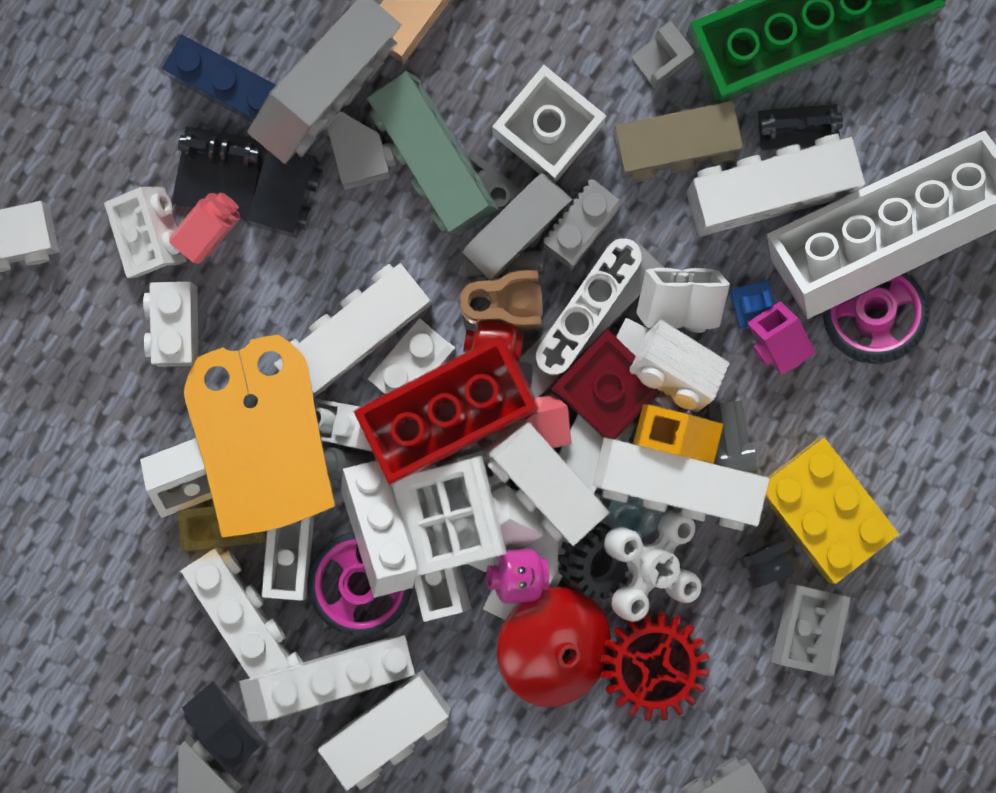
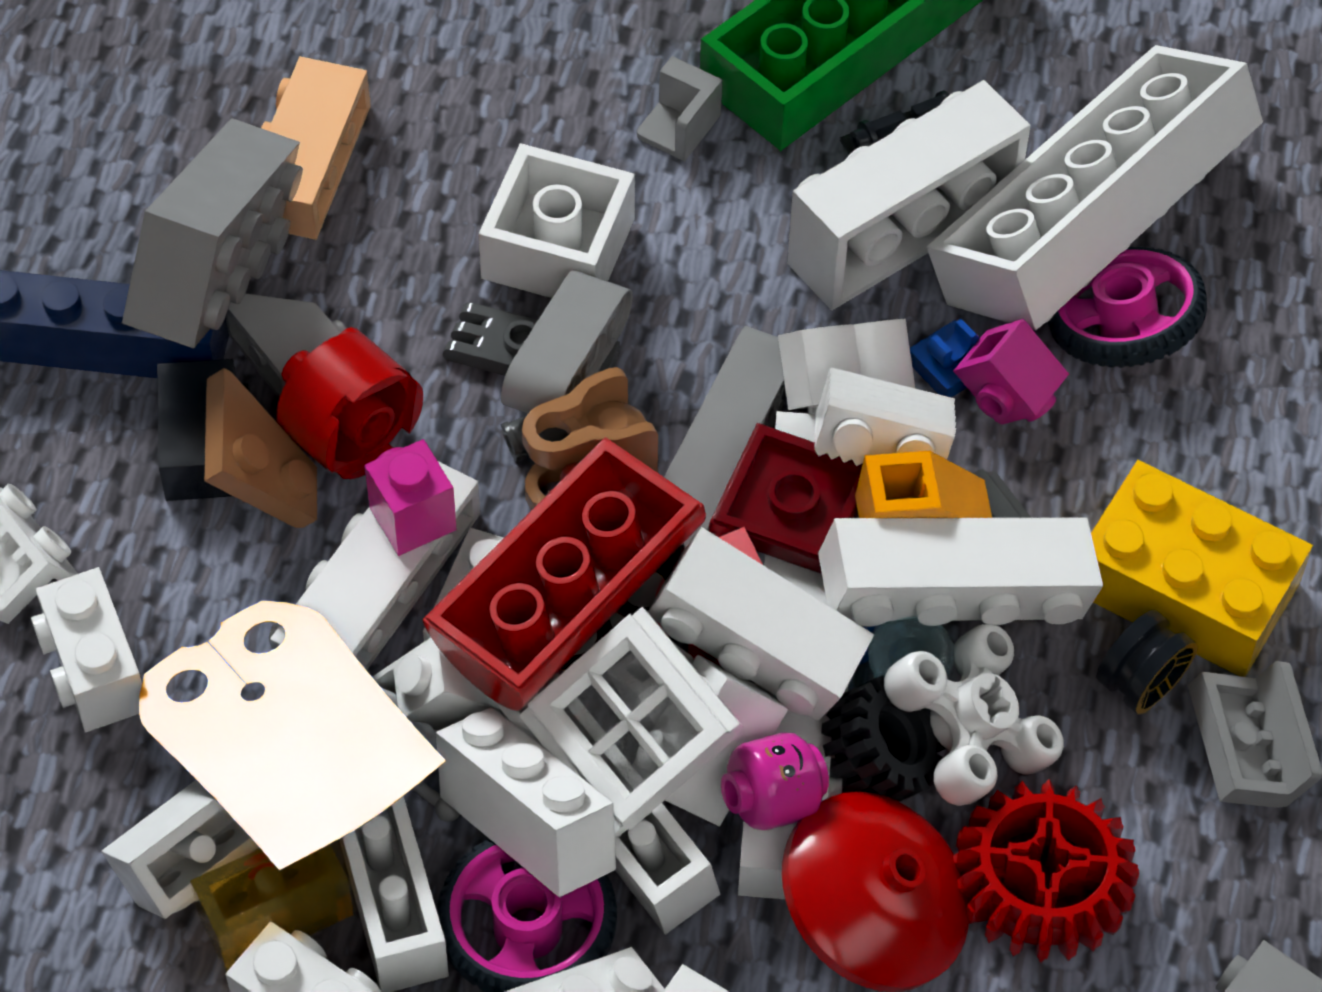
camera: 25 degrees left, 30 degrees down
(205, 227) = (98, 489): coral brick -> none
(217, 165) = (88, 443): black hinge -> none
(306, 230) = (254, 456): none -> medium nougat wing
(373, 213) = (347, 402): none -> red brick
(381, 308) = (410, 496): none -> dark pink brick
(432, 154) = (405, 309): sand green brick -> none
(581, 224) = (659, 329): light grey brick -> none
(591, 309) = (717, 411): white beam -> none
(678, 141) = (737, 197): dark tan brick -> none

